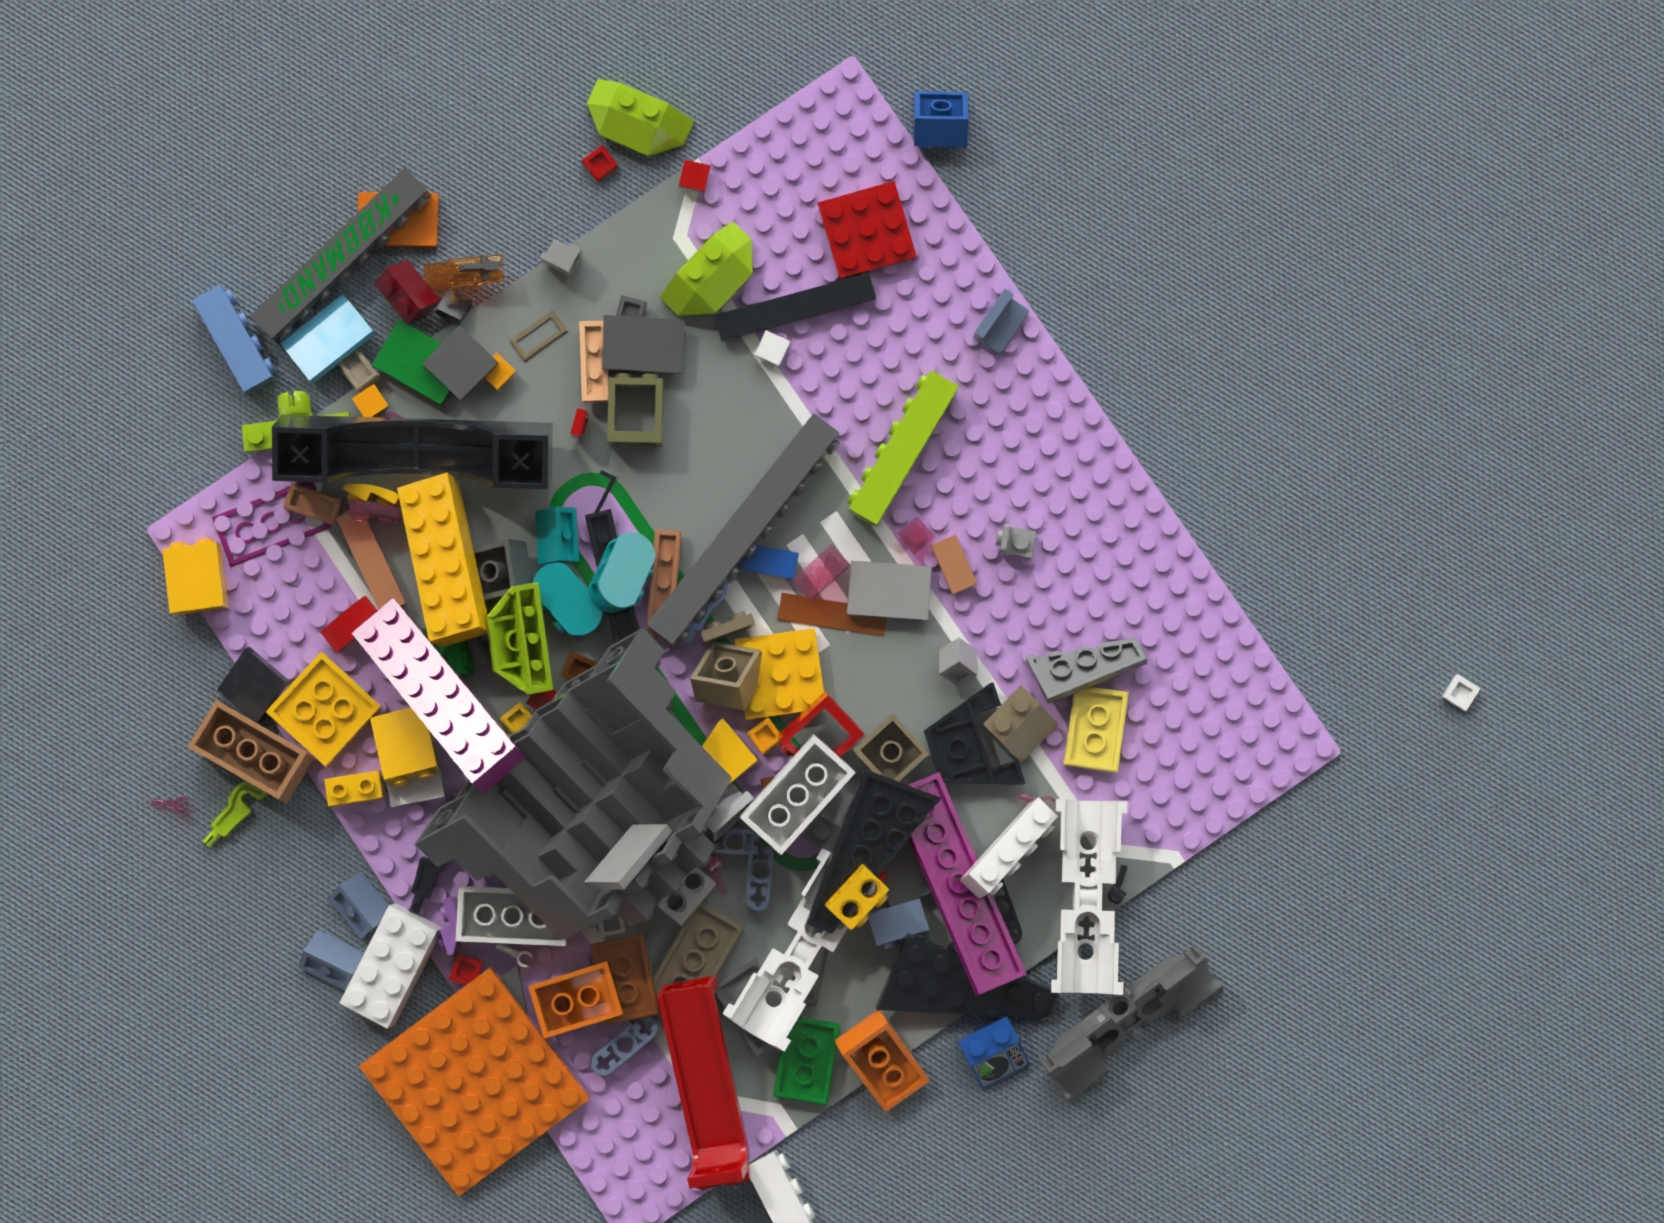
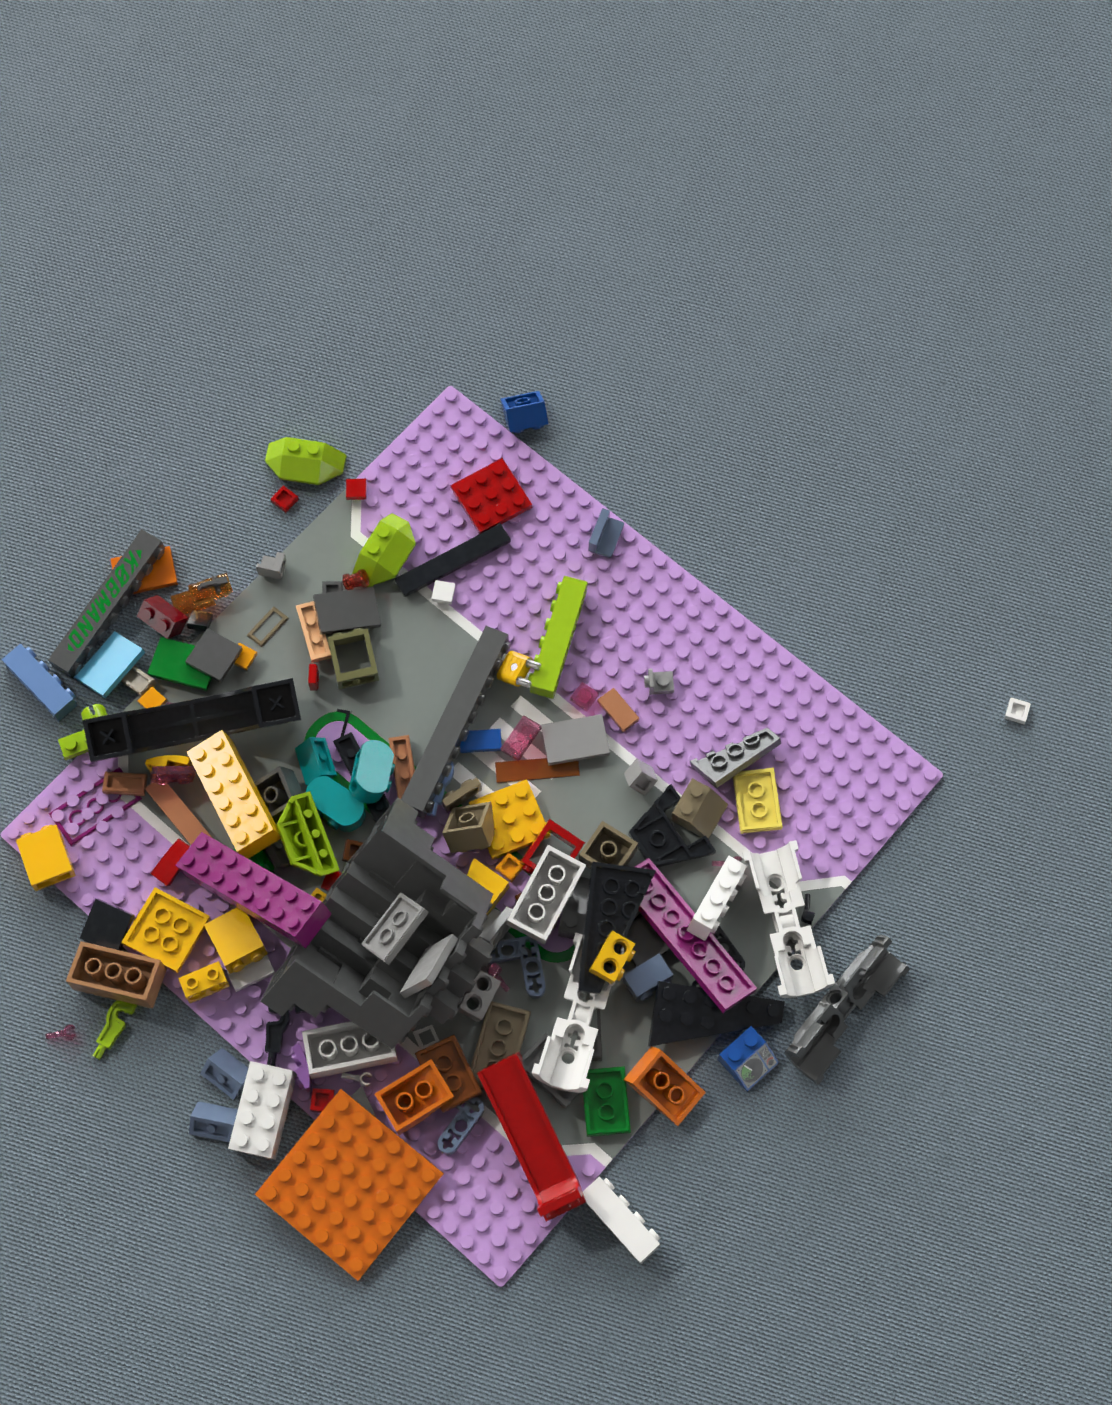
camera: 15 degrees left, 15 degrees down
(599, 794) = (394, 928): none -> light grey tile
(663, 306) = (355, 580): none -> clear red bush
(837, 479) = (516, 668): none -> yellow piece

